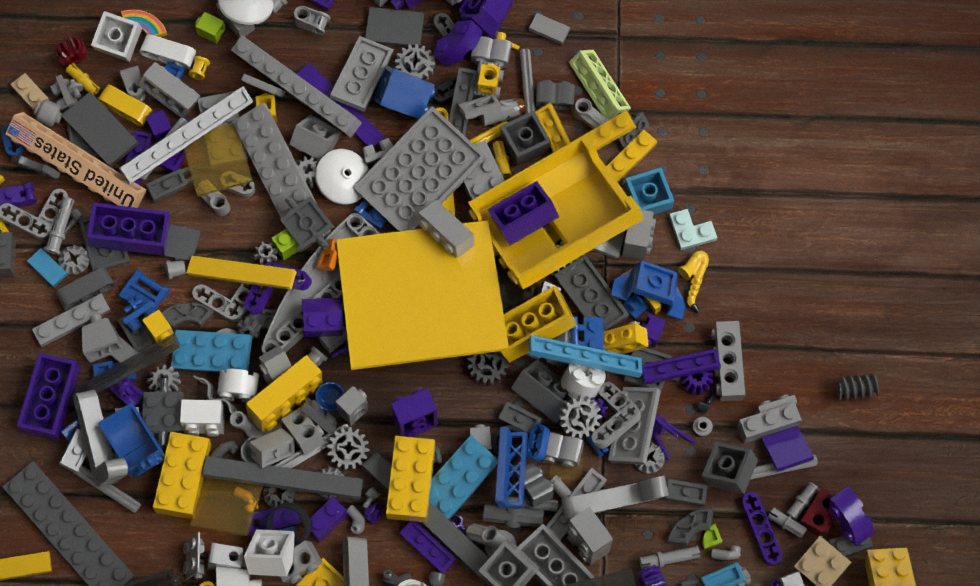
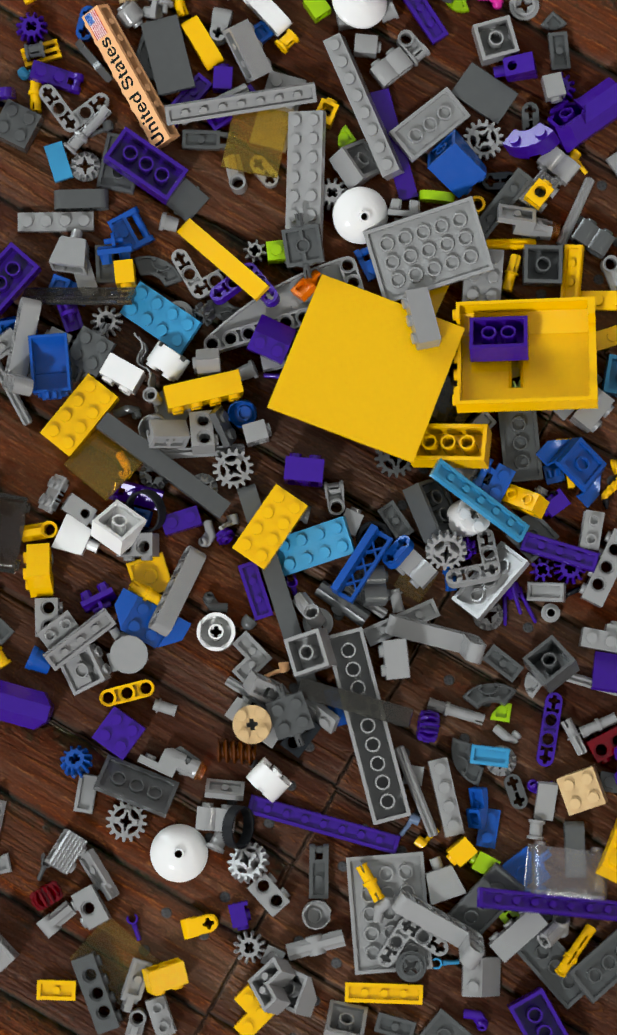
camera: 30 degrees right, 15 degrees up
(263, 85) = (333, 90): light grey tile -> none
(271, 37) = (366, 46): none -> light grey brick
(292, 120) = (345, 137): none -> lime tile
(302, 44) = (391, 67): none -> light grey brick
(399, 129) = (436, 197): none -> lime beam
(453, 424) = (334, 496): none -> light grey piece
(668, 395) = (535, 571): none -> dark purple gear
(688, 409) = (546, 591): none -> light grey tile
(696, 334) = (591, 530): none -> light grey hinge
(723, 498) = (531, 685): none -> light grey tile

